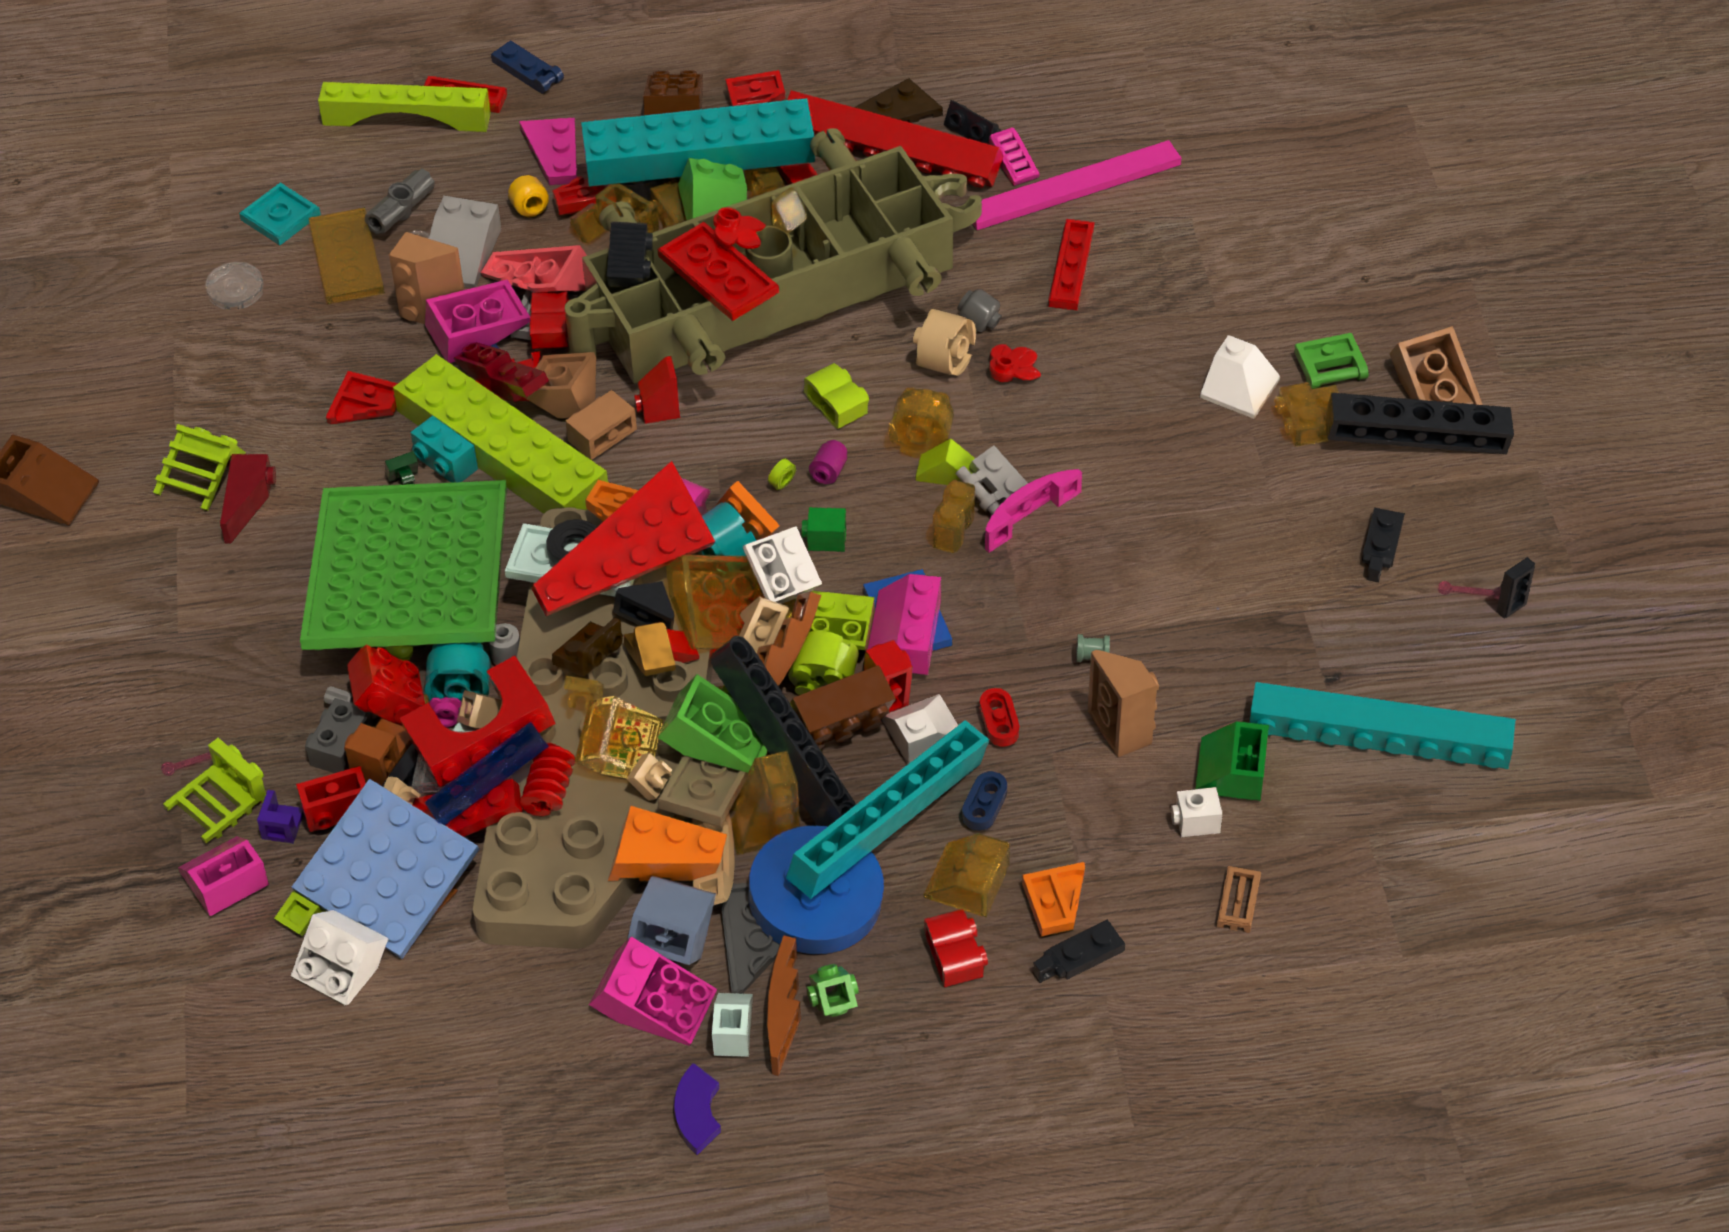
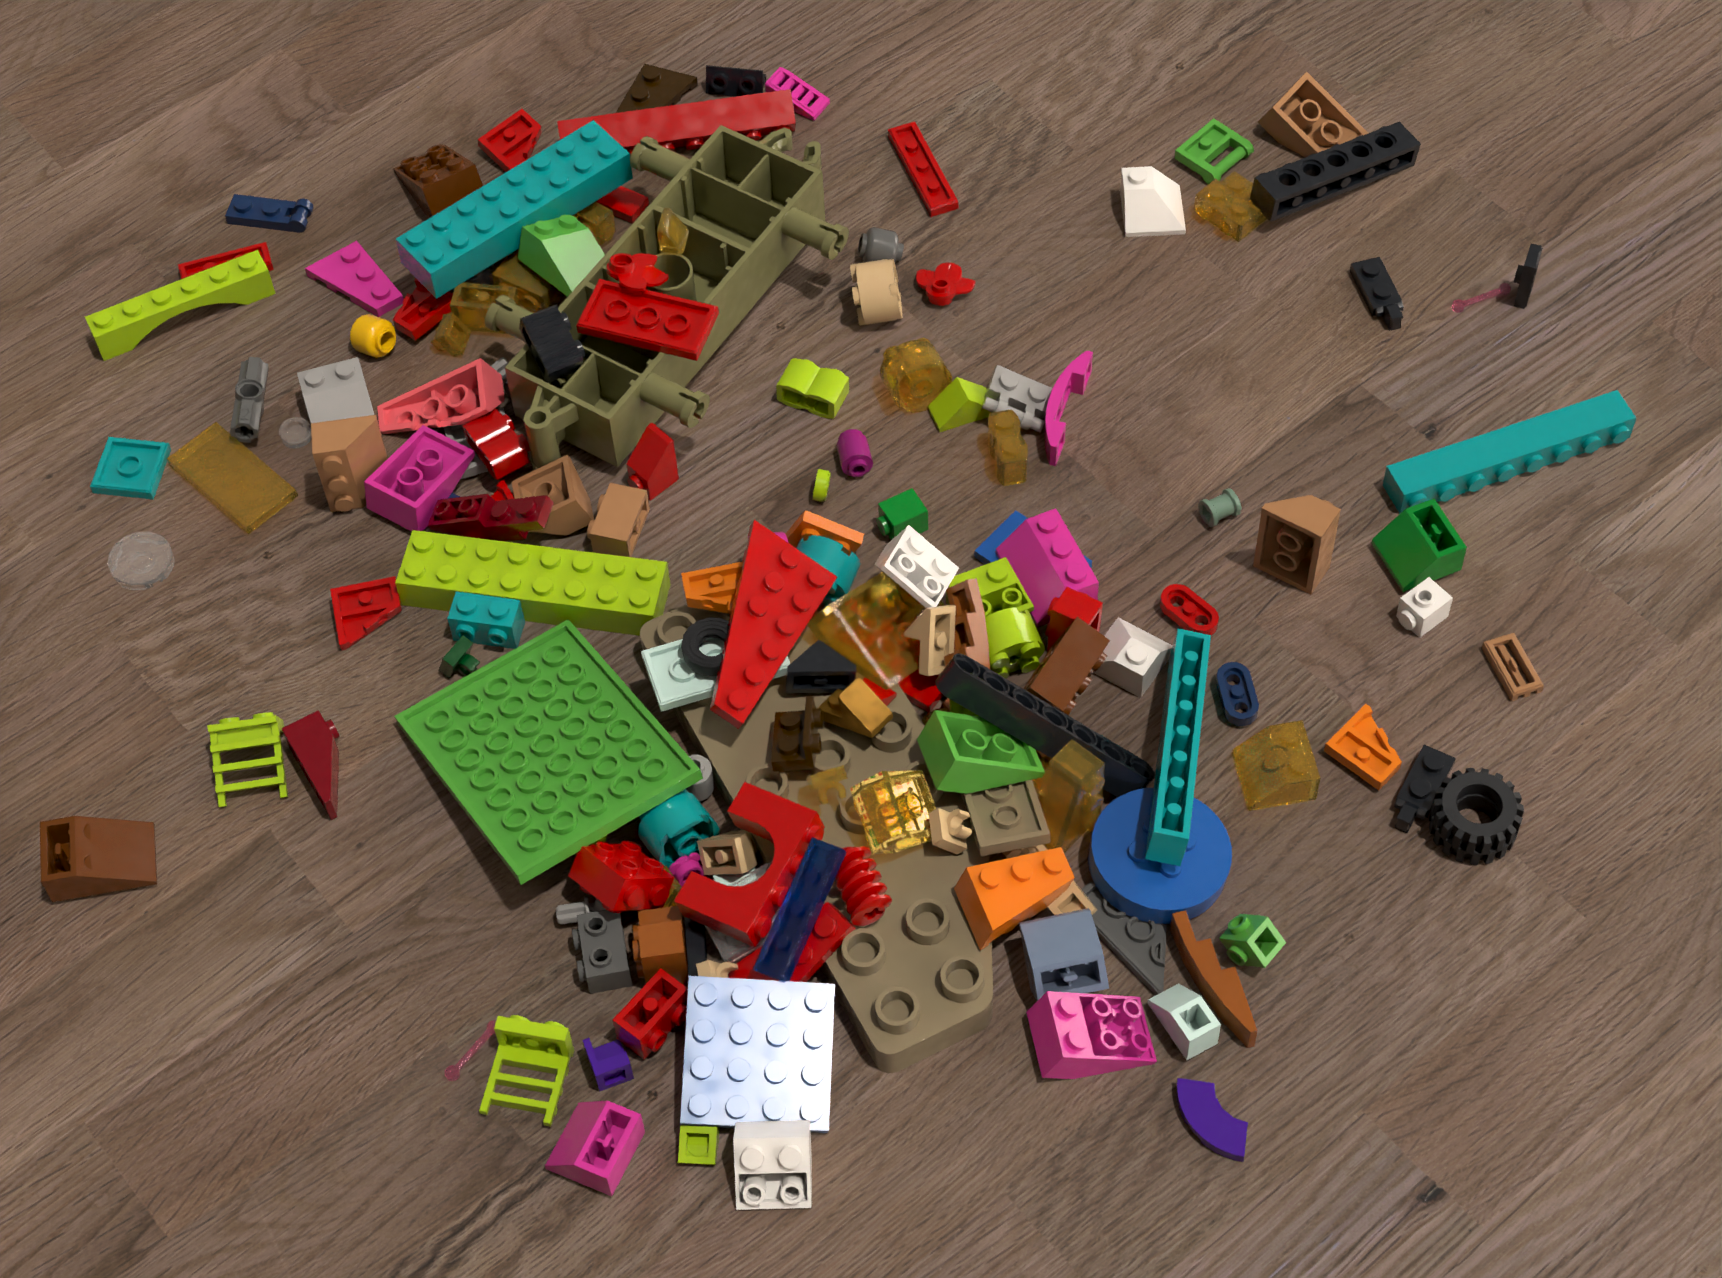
camera: 30 degrees left, 5 degrees up
(954, 947) = (1319, 841): red brick -> none
(1077, 183) = (873, 89): dark pink tile -> none
(1094, 1017) = (1482, 793): none -> black tyre

